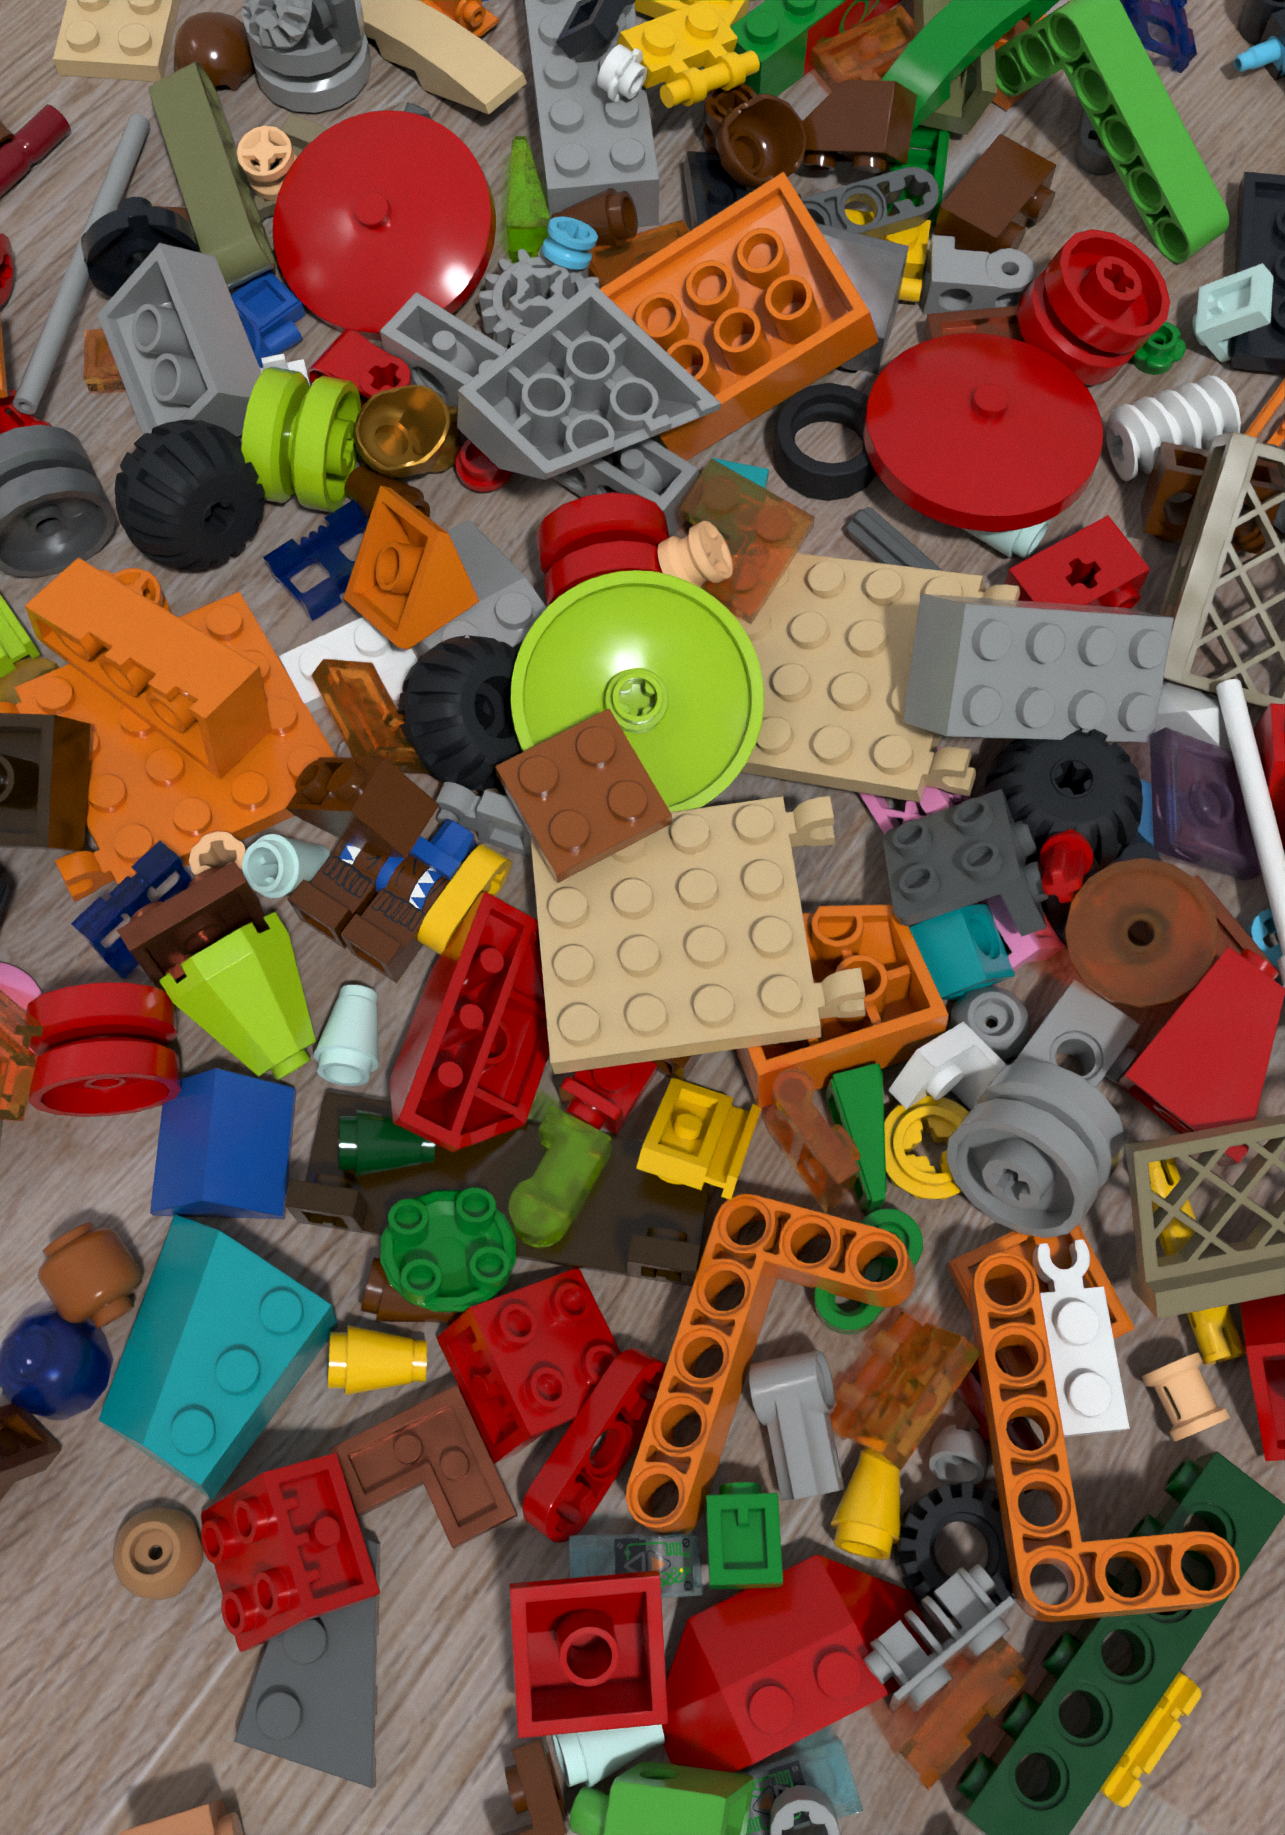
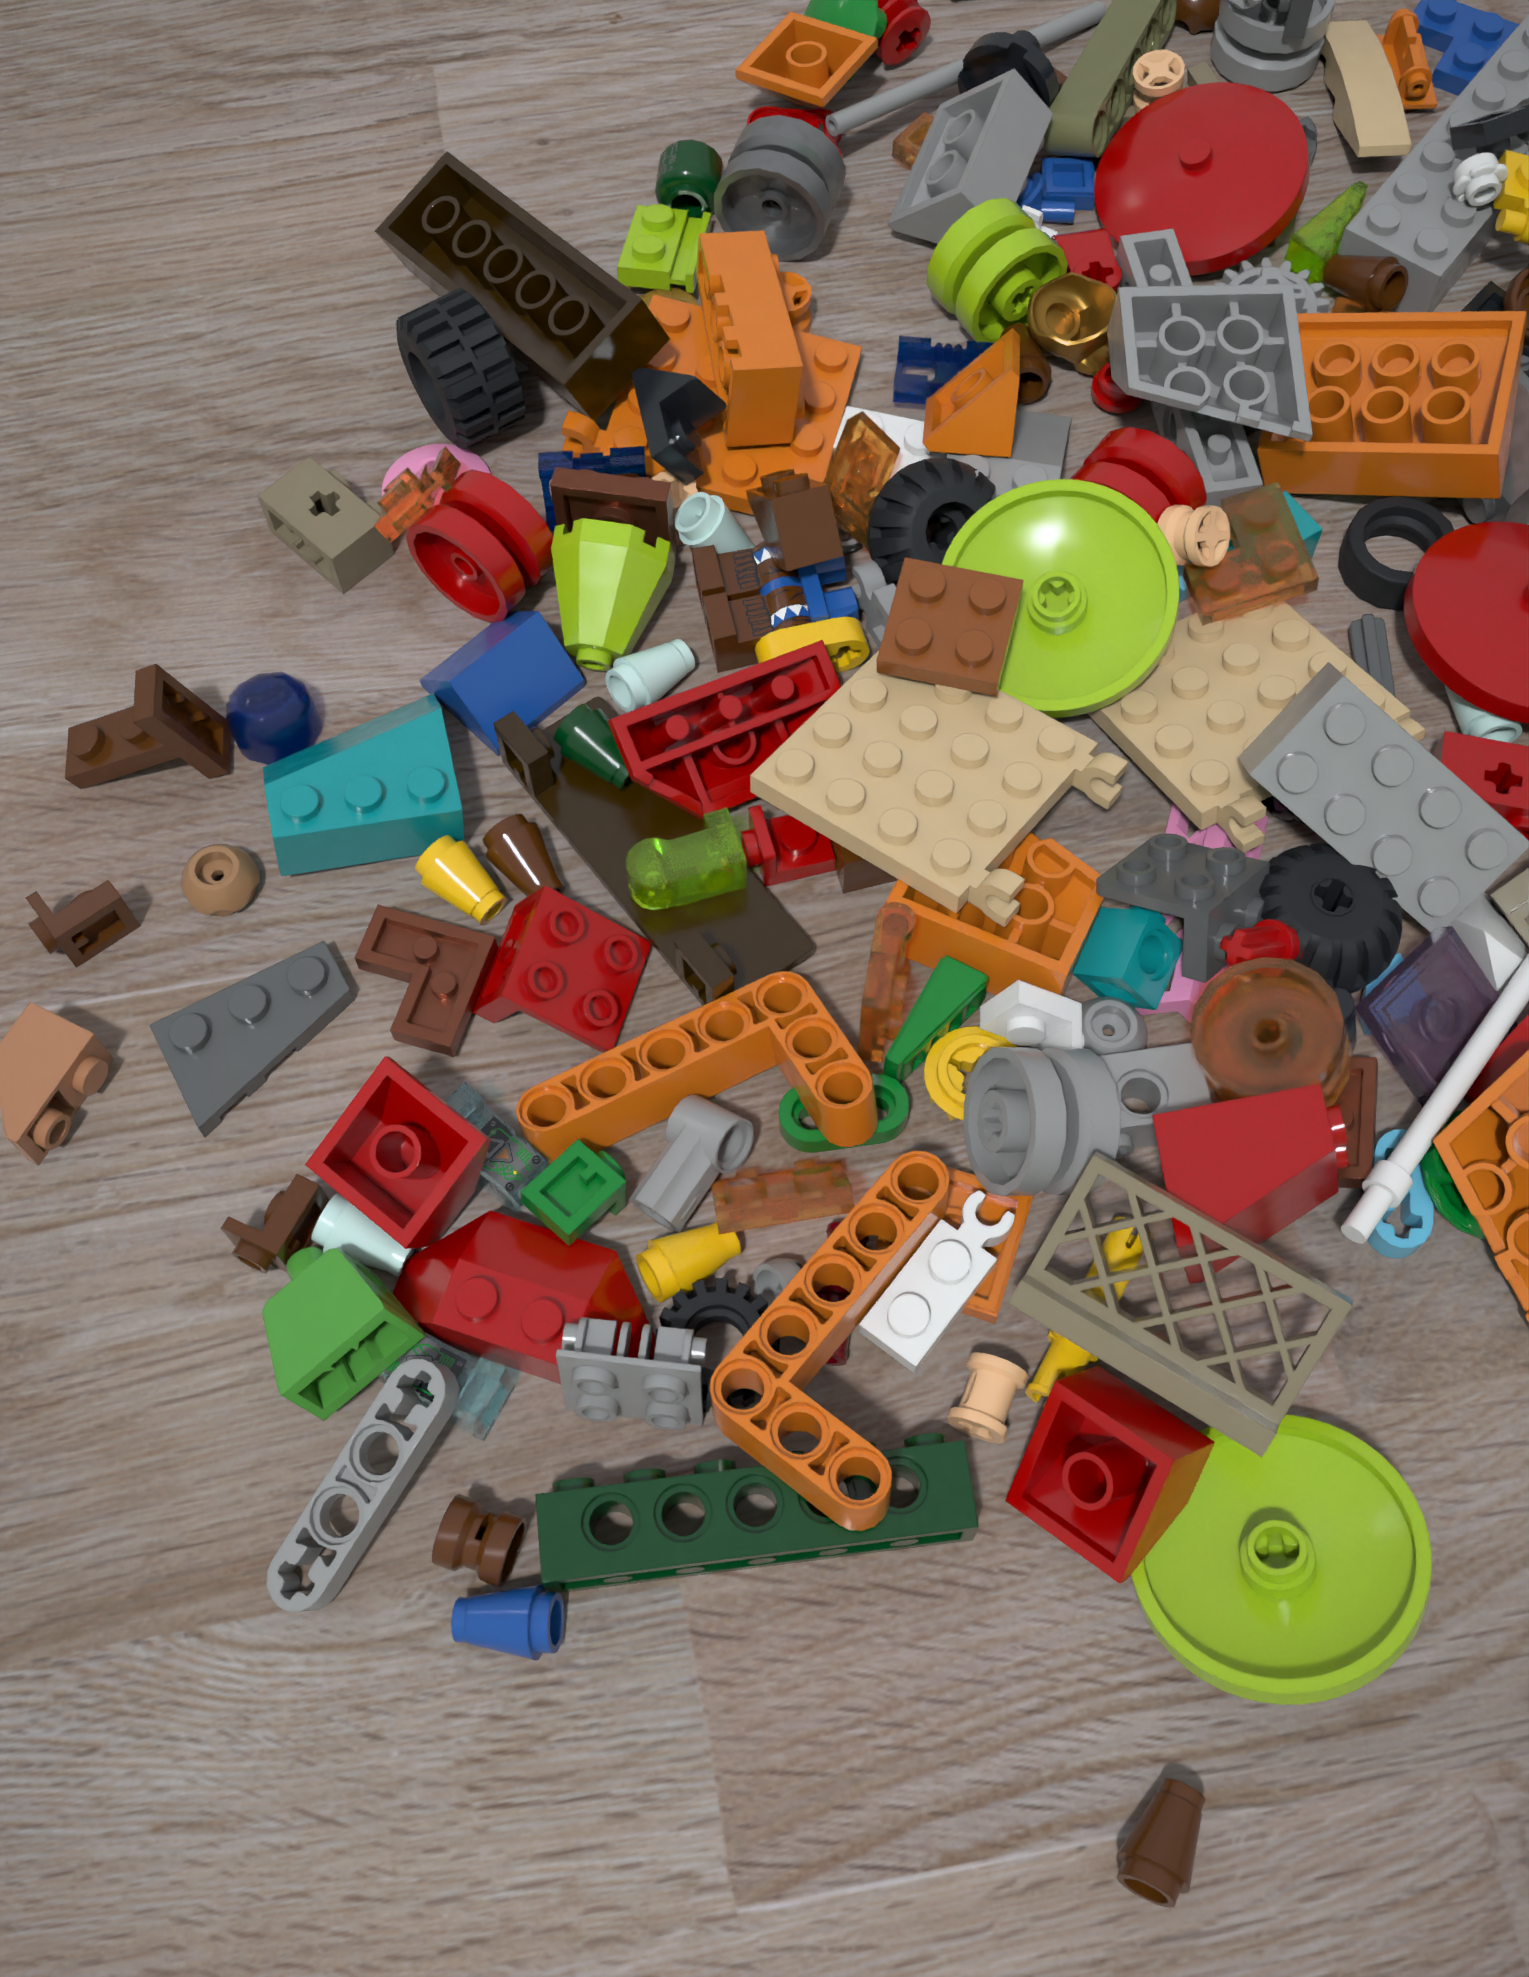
camera: 45 degrees right, 5 degrees down
(85, 1707) = (85, 925): none -> reddish brown bracket
(90, 1275) = (344, 679): dark orange head -> none
(160, 795) = (671, 412): none -> black slope
(188, 495) = (881, 252): black wheel -> none
(287, 1550) = (294, 935): red bracket -> none
(448, 1249) = (572, 845): green dish -> none
(569, 242) = (1326, 276): medium azure bush -> none
(571, 1480) = (562, 1030): red beam -> none
(698, 1138) = (809, 918): yellow plate -> none
(945, 1733) = (601, 1429): clear orange plate -> none
(1151, 1741) = (721, 1589): yellow axle -> none

